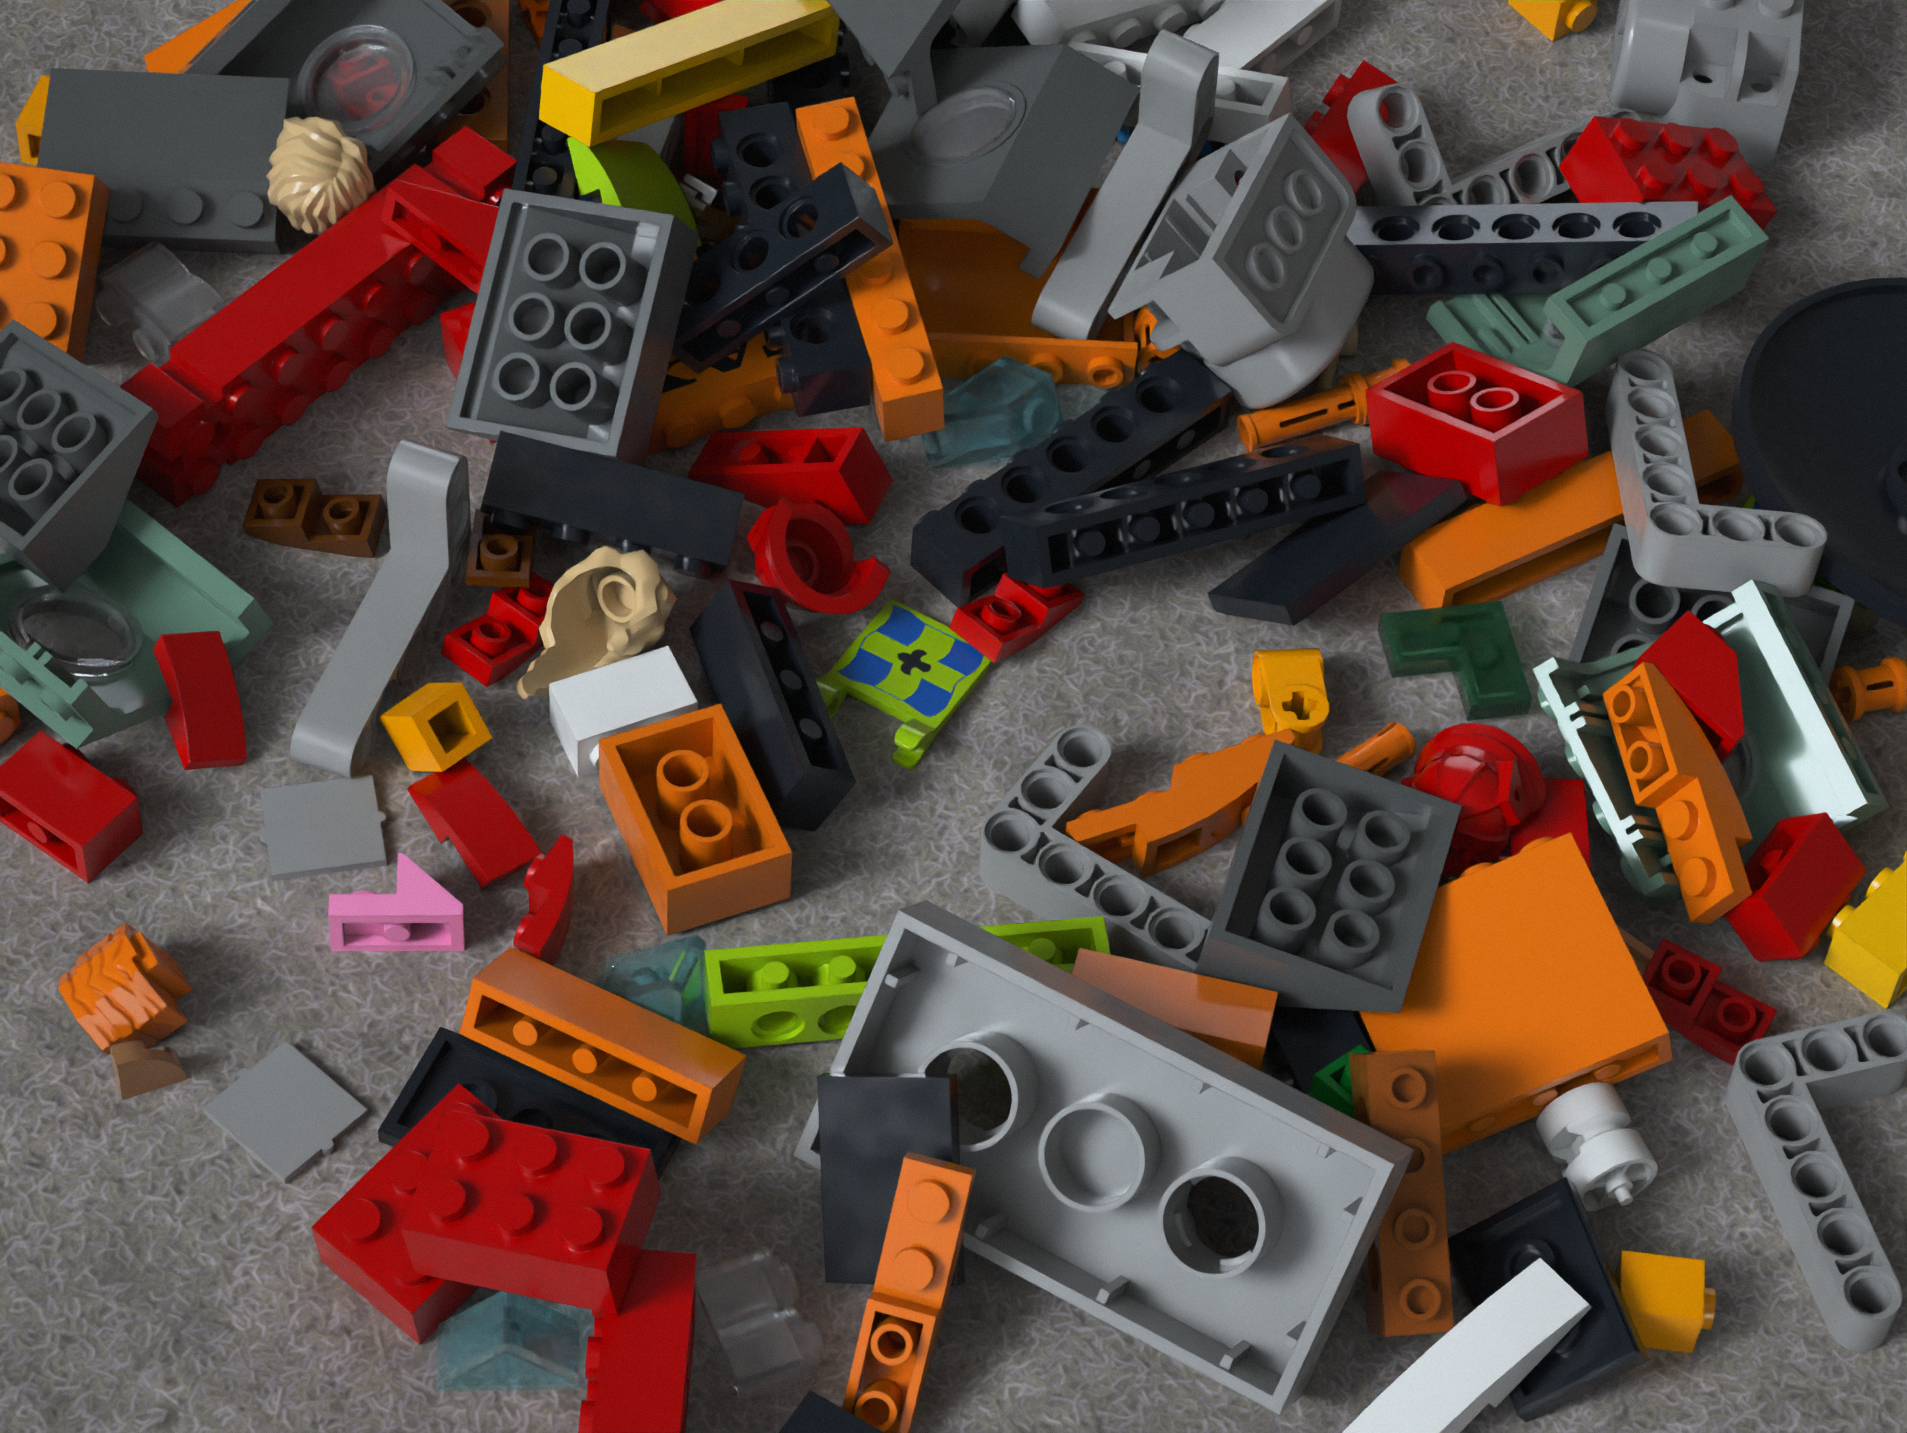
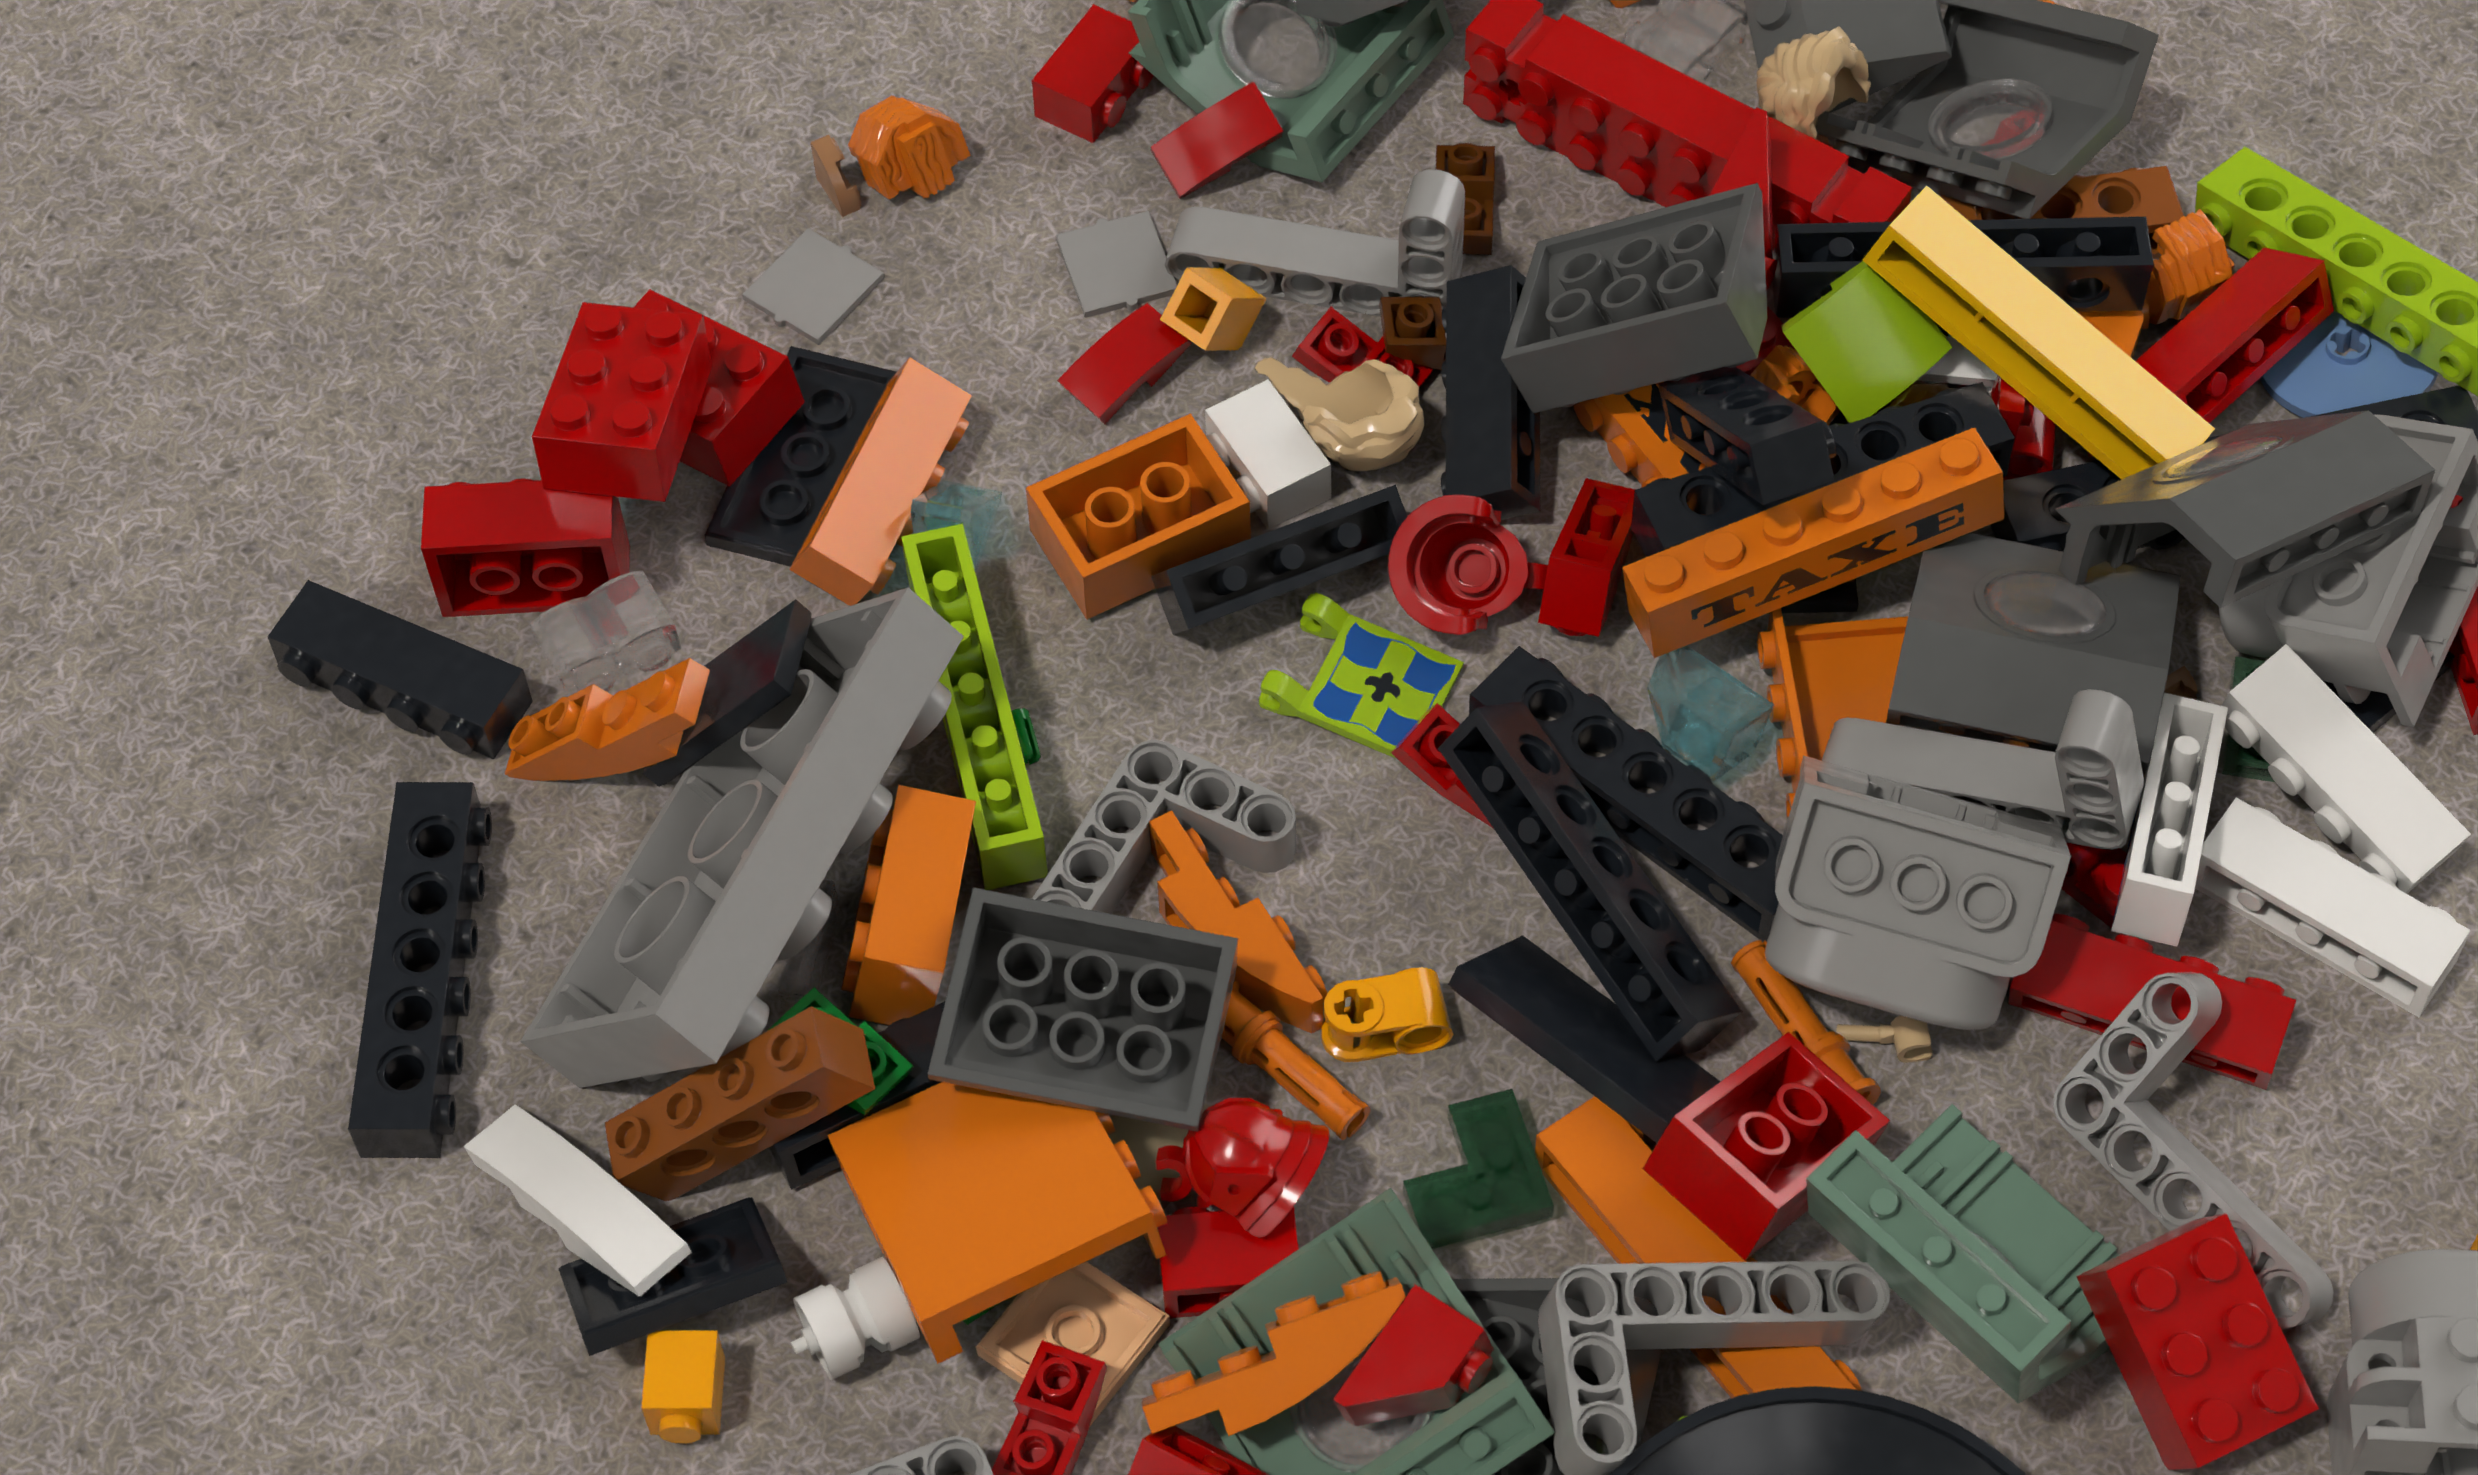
camera: 90 degrees right, 5 degrees up
(413, 919) = (1019, 327): bright pink slope -> none
(550, 903) = (1048, 433): red slope -> none
(1502, 244) = (2034, 1158): black brick -> none

